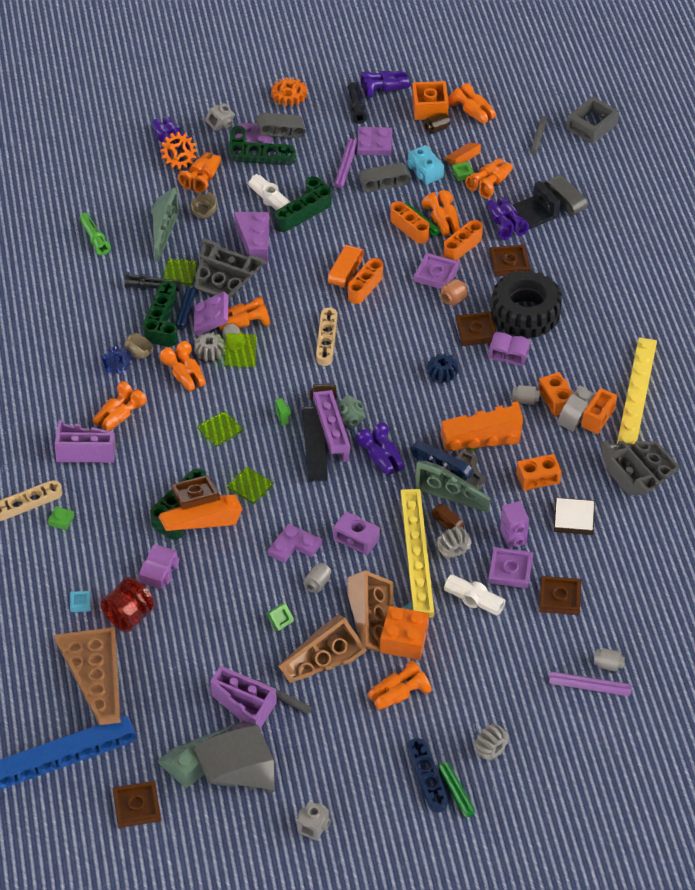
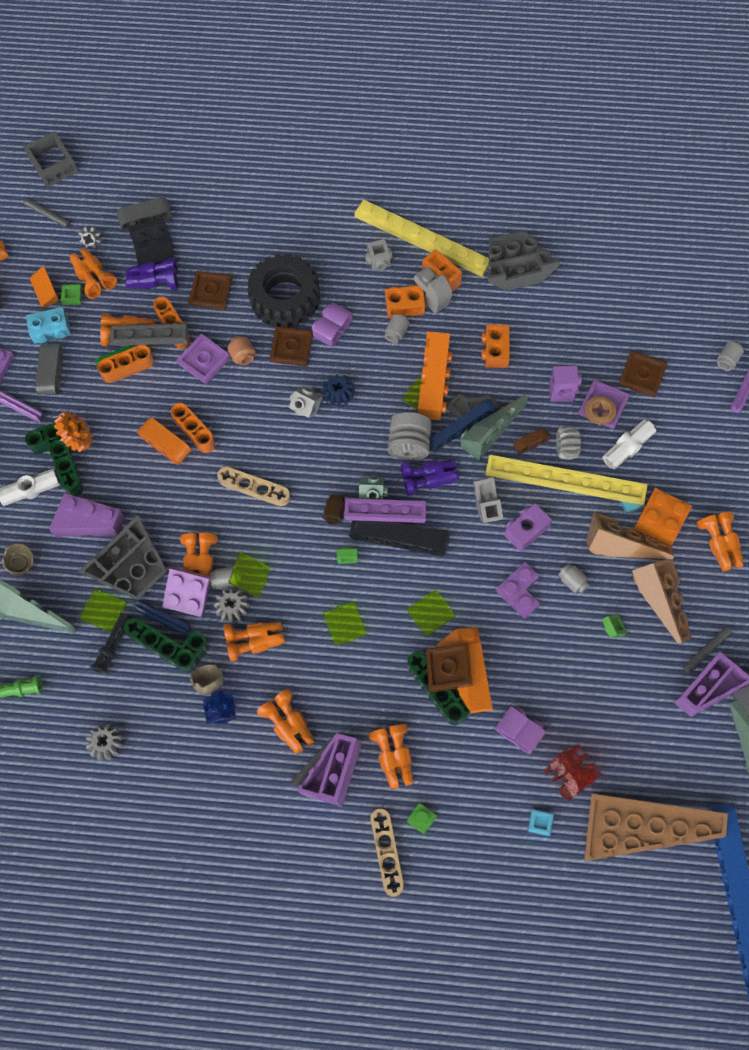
camera: 70 degrees left, 20 degrees up
(67, 299) = (112, 739): none -> light grey gear
(105, 486) = (394, 761): none -> orange piece
(326, 212) = (73, 431): none -> orange gear
(369, 498) = (486, 500): none -> light grey brick
(409, 423) = (409, 436): none -> light grey wheel
(420, 346) = (305, 401): none -> light grey brick
(439, 224) = (149, 334): none -> dark grey tile
(503, 554) = (607, 406): none -> medium nougat gear
(525, 165) = (87, 241): none -> light grey gear
(574, 516) = (553, 334): white tile -> none
(596, 361) = (378, 255): none -> light grey brick

